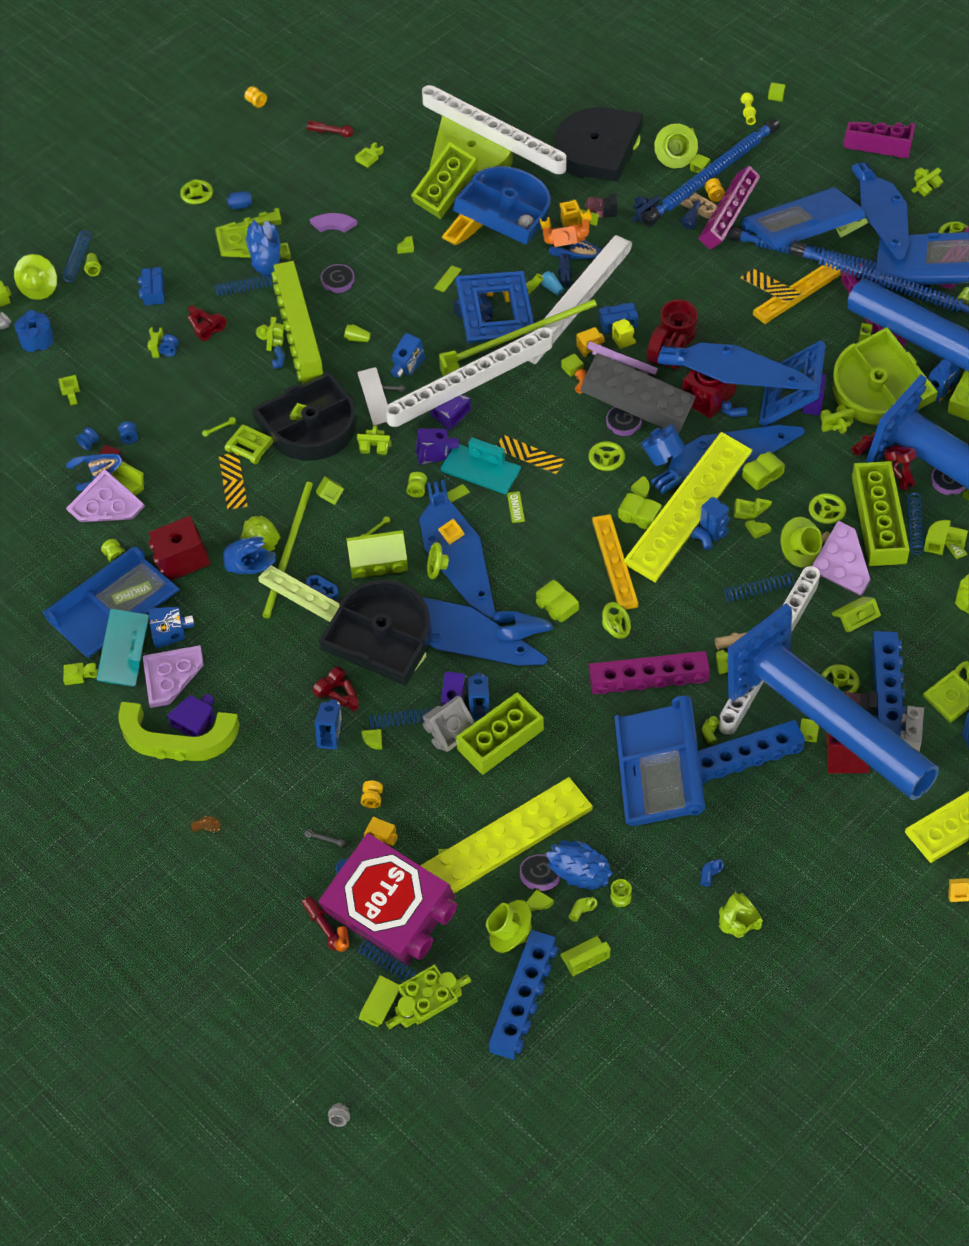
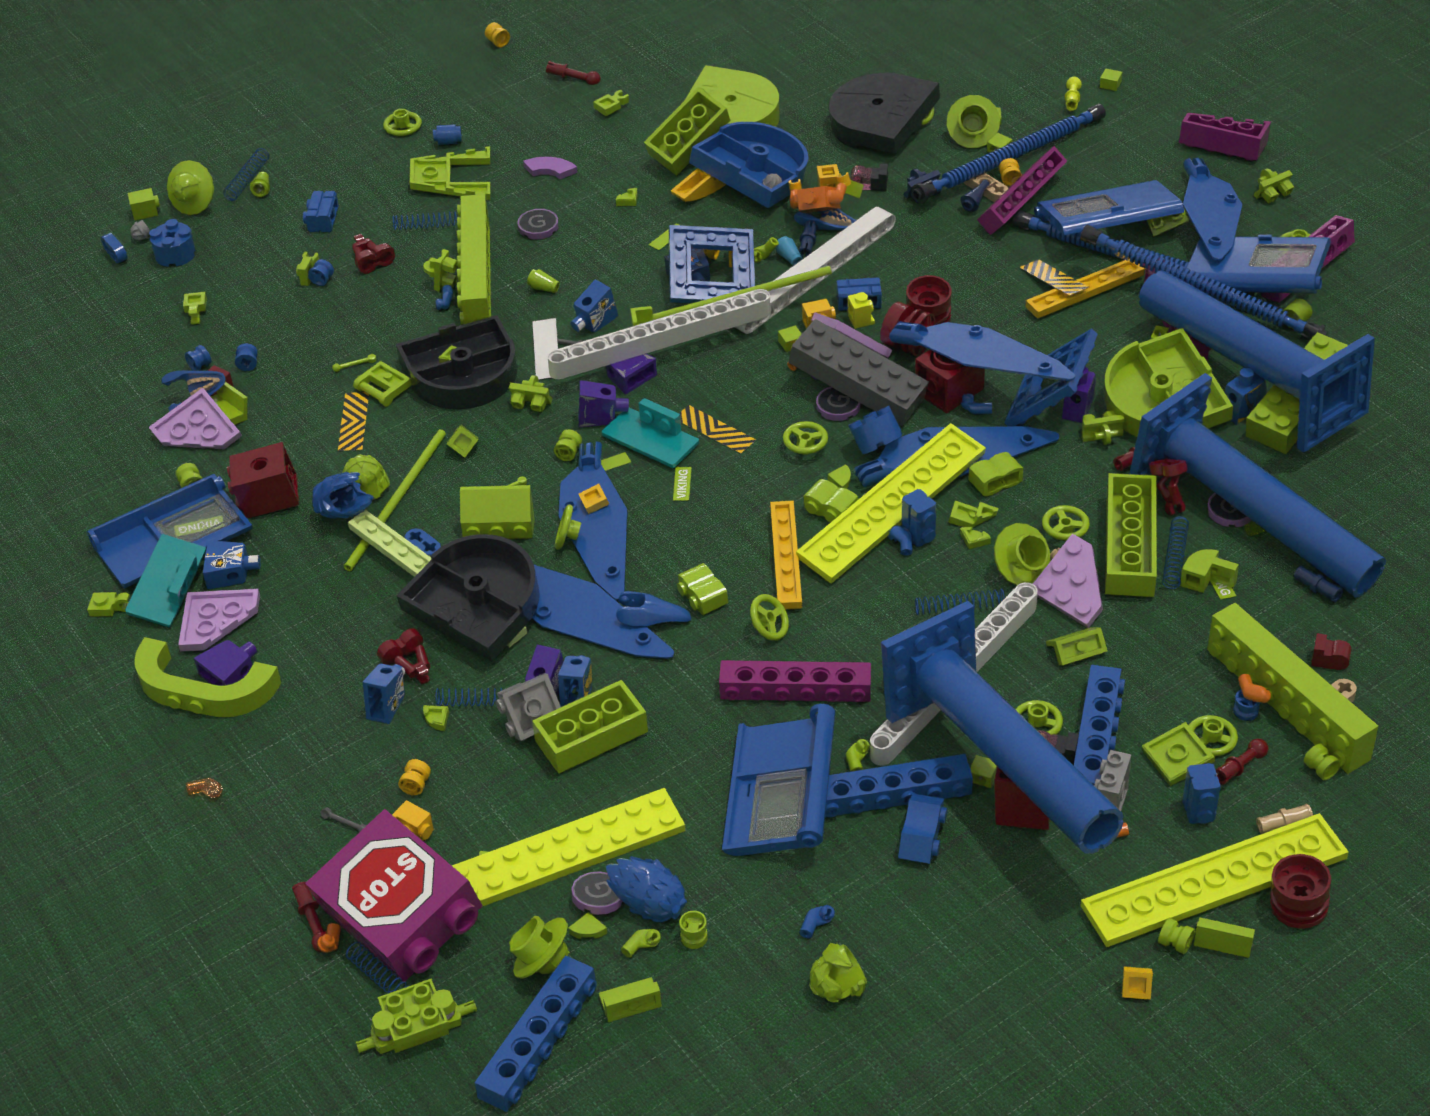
camera: 10 degrees right, 10 degrees down
(263, 247) = (456, 177): blue head -> none
(379, 1001) = (352, 1016): lime hinge -> none
(494, 129) = (760, 85): white beam -> none
(774, 785) = (922, 828): none -> blue brick

